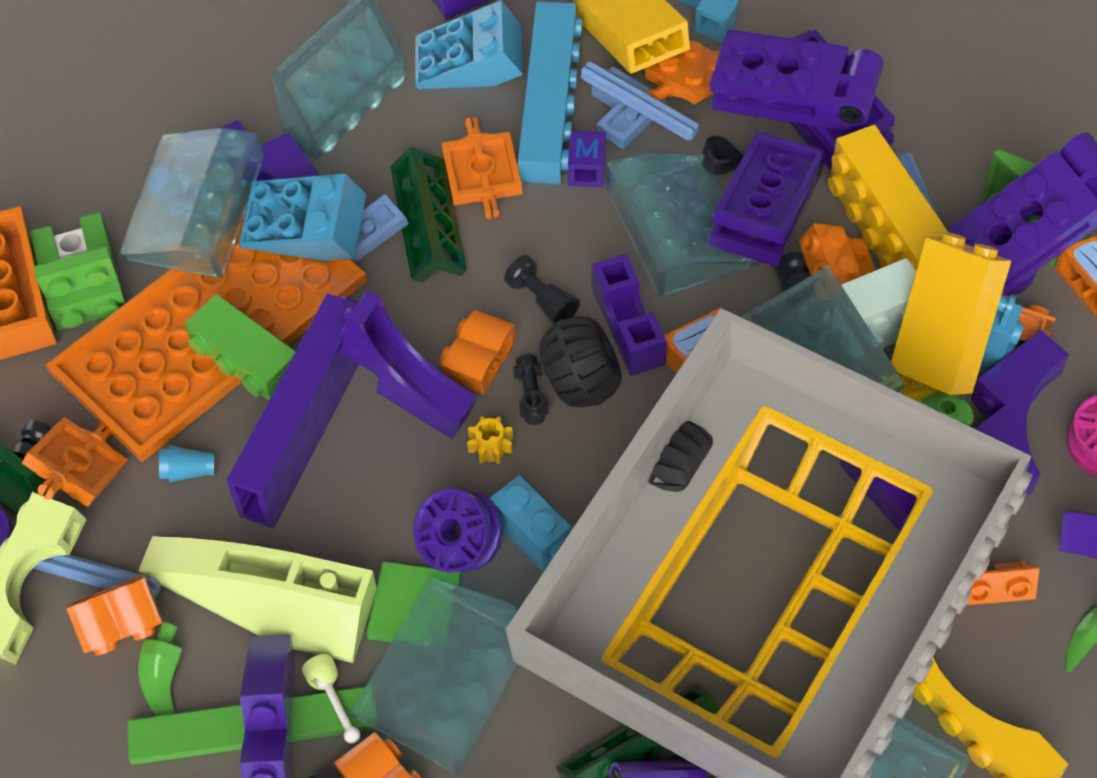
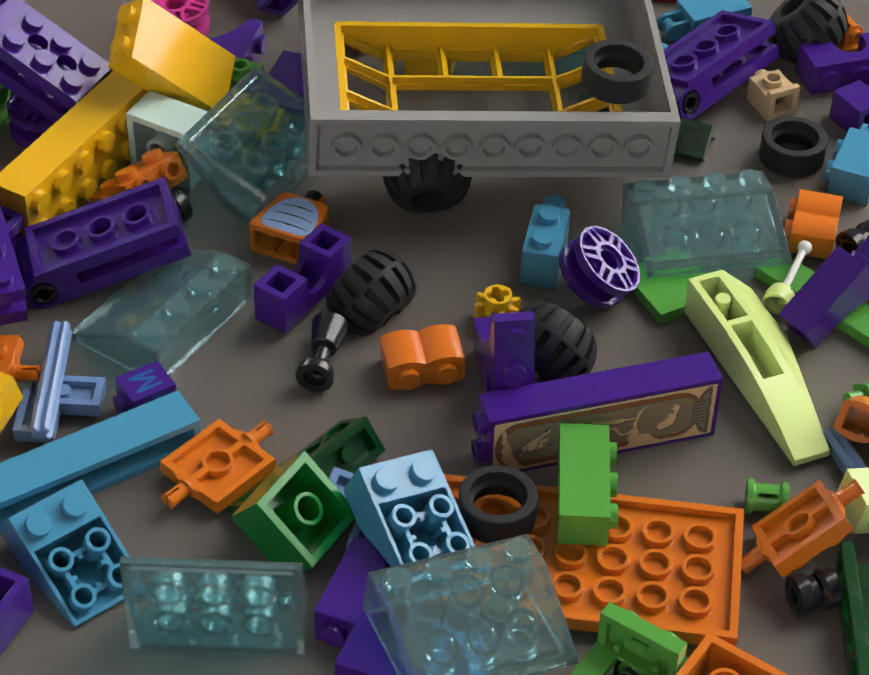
camera: 130 degrees left, 15 degrees down
(138, 485) = (764, 496): none -> bright green bush
(184, 463) = (717, 483): dark azure cone -> none
(269, 263) = (502, 481): none -> black tyre
(377, 156) = (295, 513): none -> green brick
(415, 448) = (561, 343): none -> black wheel
(533, 404) = (438, 307): black bar -> none
(600, 569) = (617, 88): none -> black tyre
(720, 156) = (72, 311): black tile -> none

